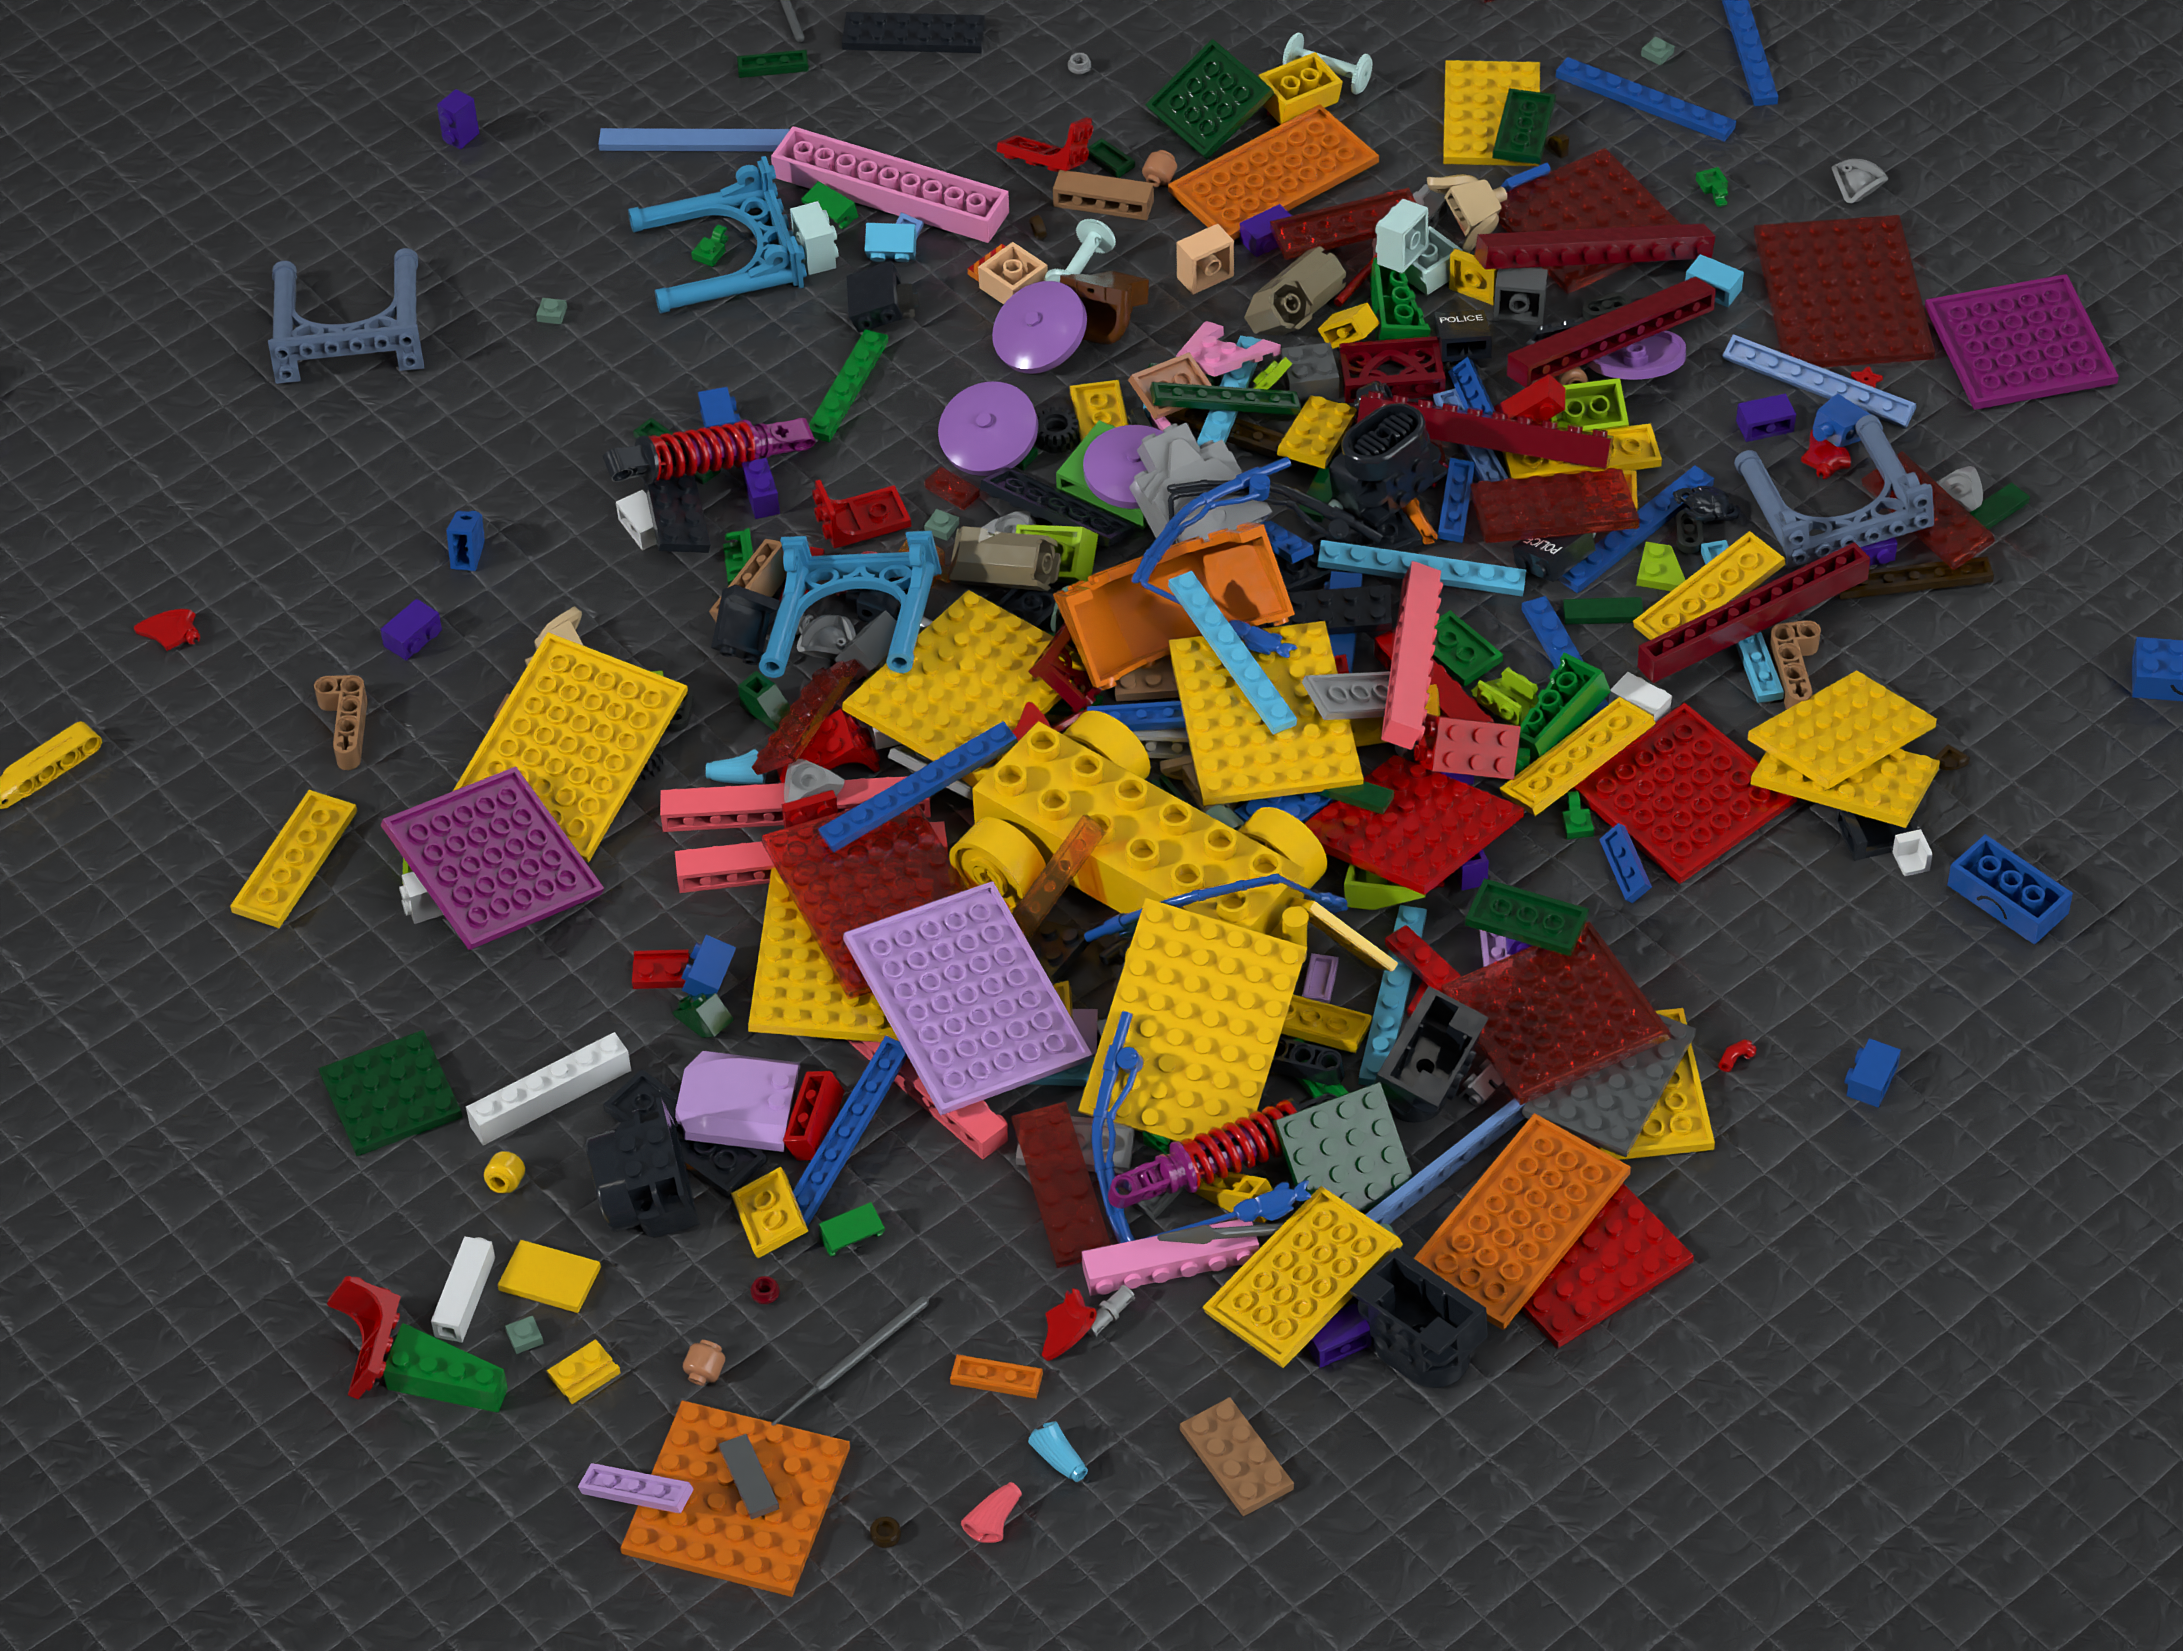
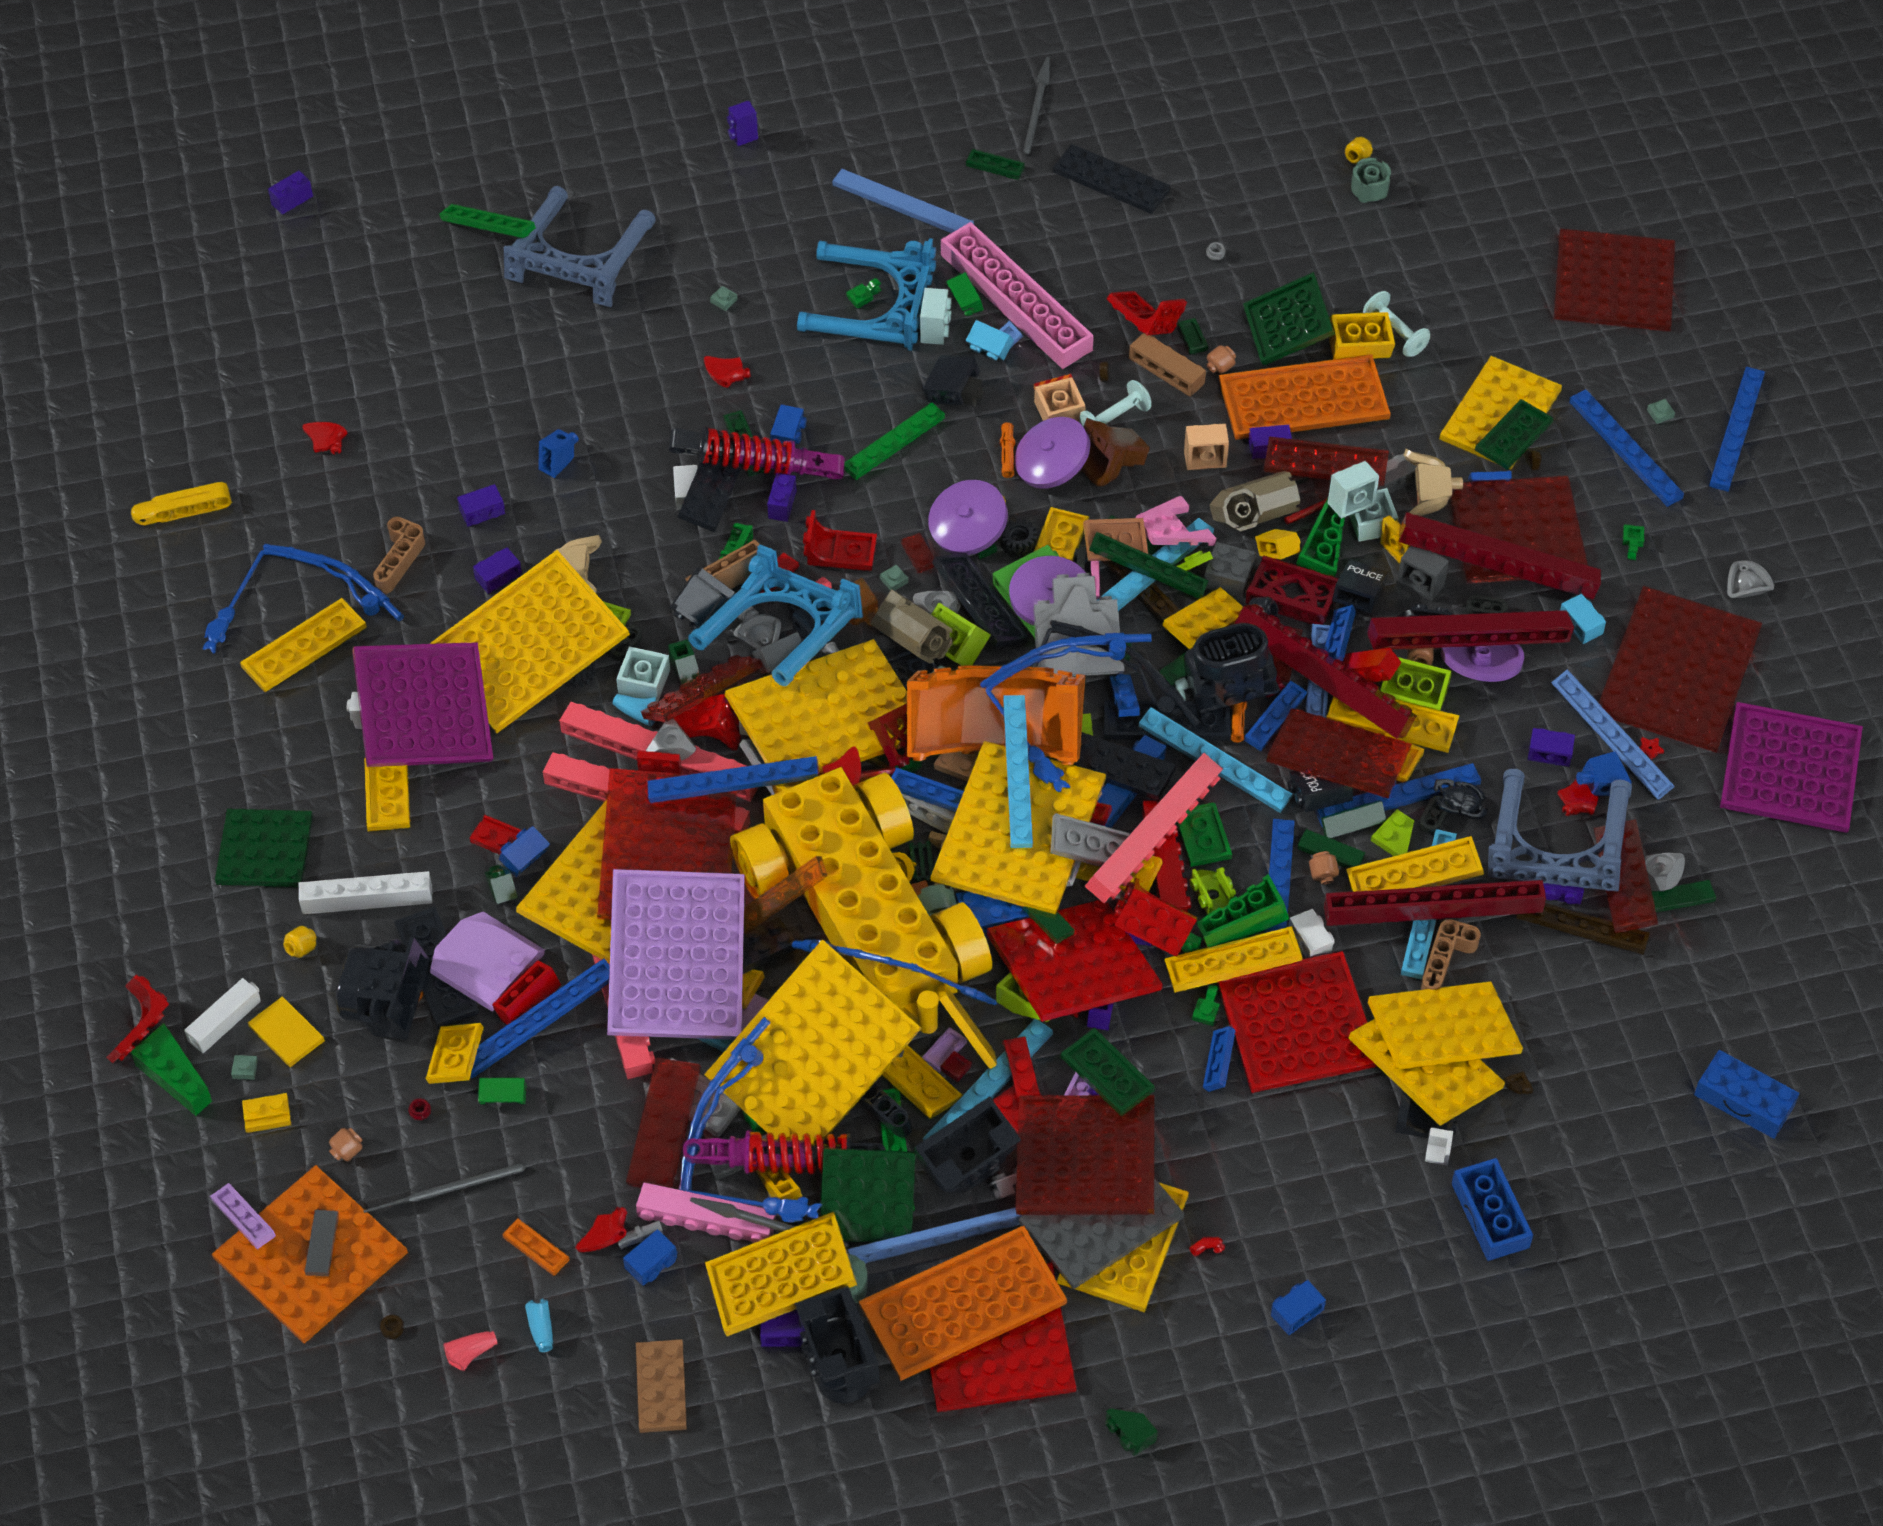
camera: 25 degrees right, 5 degrees up
(223, 325) = (487, 221): none -> green plate
(348, 776) = (371, 602): none -> blue piece
(476, 690) = (497, 570): none -> dark purple brick
(501, 979) = (387, 797): none -> yellow tile
(605, 384) = (726, 370): none -> red arm
(724, 729) = (643, 674): none -> light aqua brick
(978, 340) = (1007, 443): none -> orange pin
(1138, 1328) = (650, 1258): none -> blue brick
(1346, 989) = (955, 1066): none -> dark red plate
(1608, 569) = (1353, 819): none -> tile
(1609, 628) = (1324, 867): none -> nougat head
(1780, 1269) = (1132, 1428): none -> dark green slope

